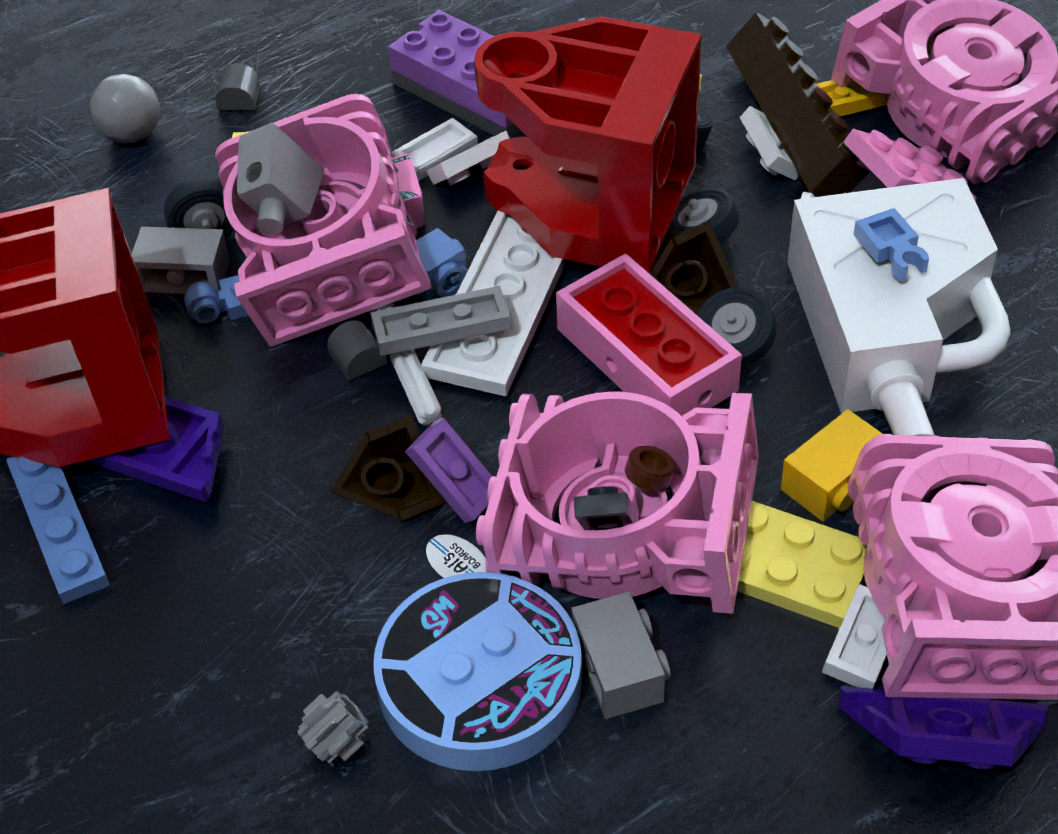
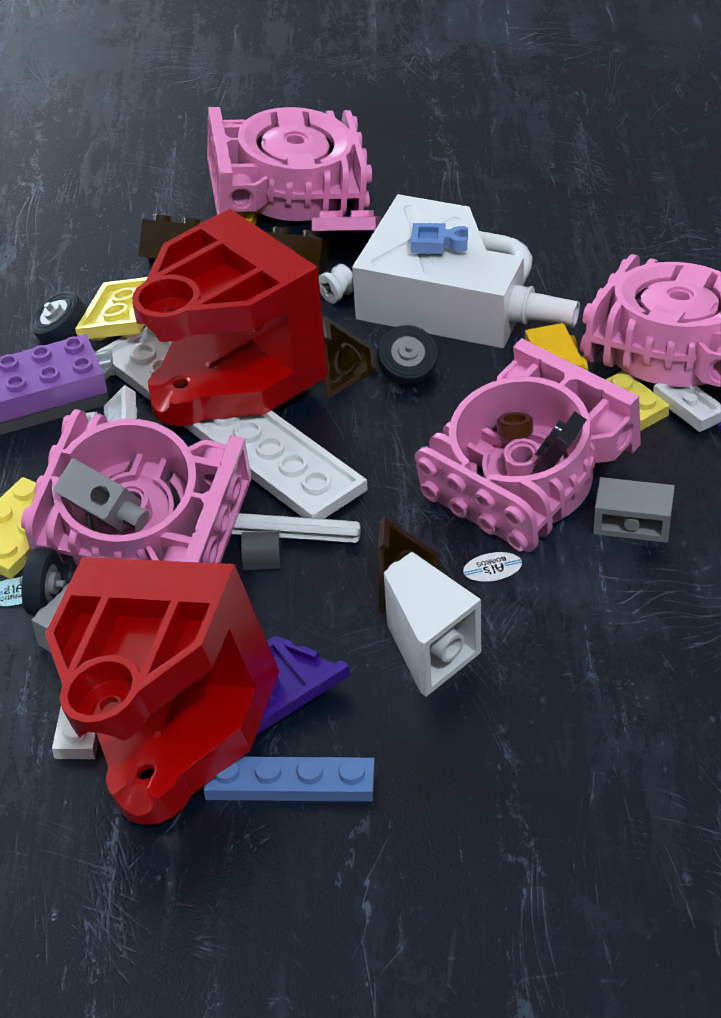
camera: 60 degrees left, 5 degrees down
(291, 528) = (431, 621): none -> white slope
(333, 727) = (606, 663): light grey gear -> none
(440, 320) = (288, 484): light grey plate -> none
(452, 469) = (431, 526): medium lavender plate -> none
(478, 671) = (599, 581): brick -> none
(647, 338) = (389, 395): brick -> none

